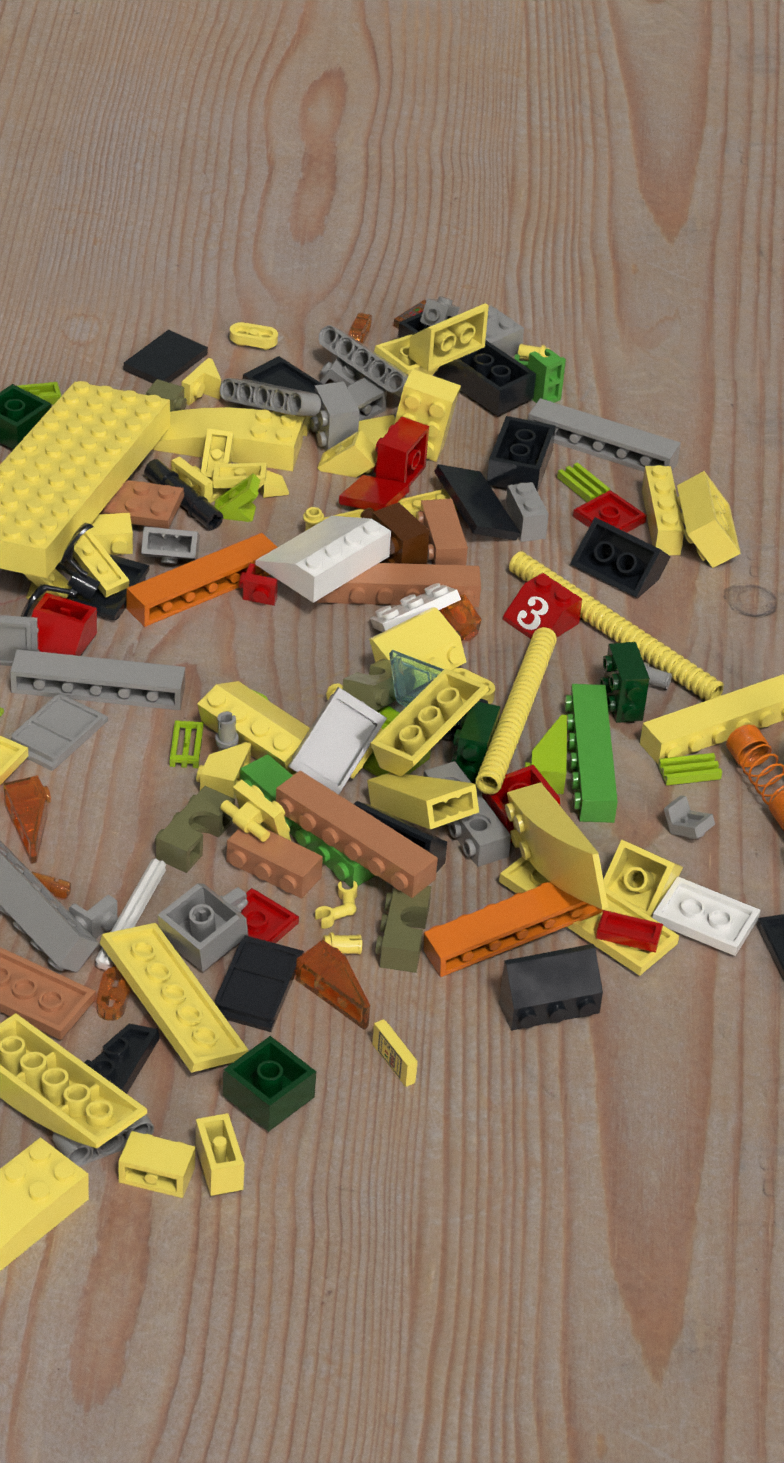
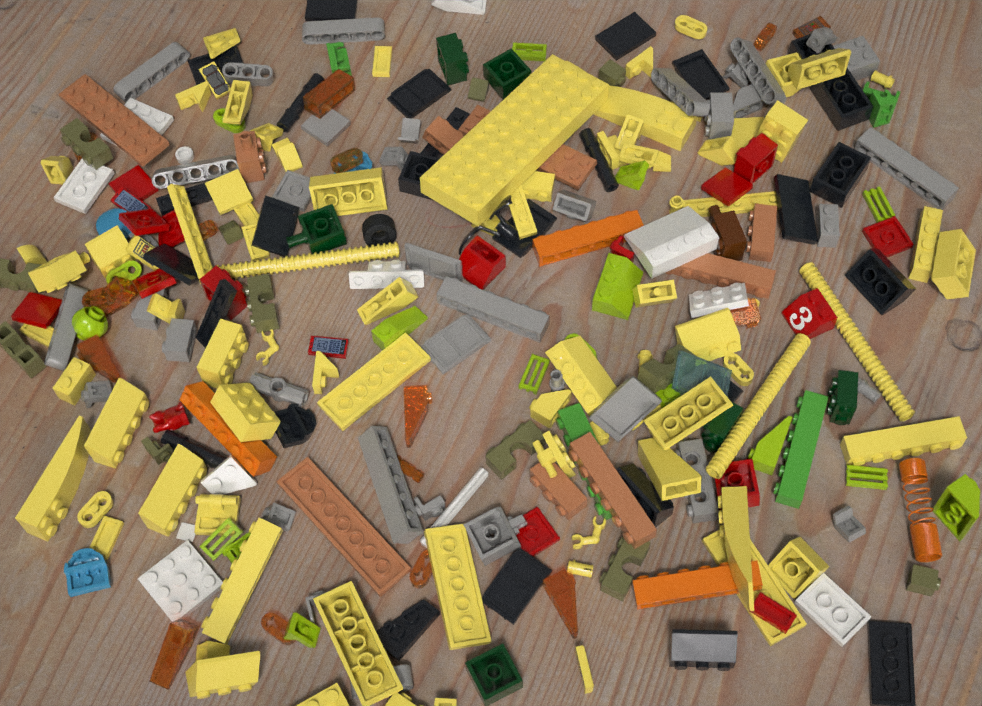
camera: 25 degrees right, 20 degrees up
(267, 625) = (615, 287): none -> lime slope
(323, 620) = (654, 293): none -> light yellow brick

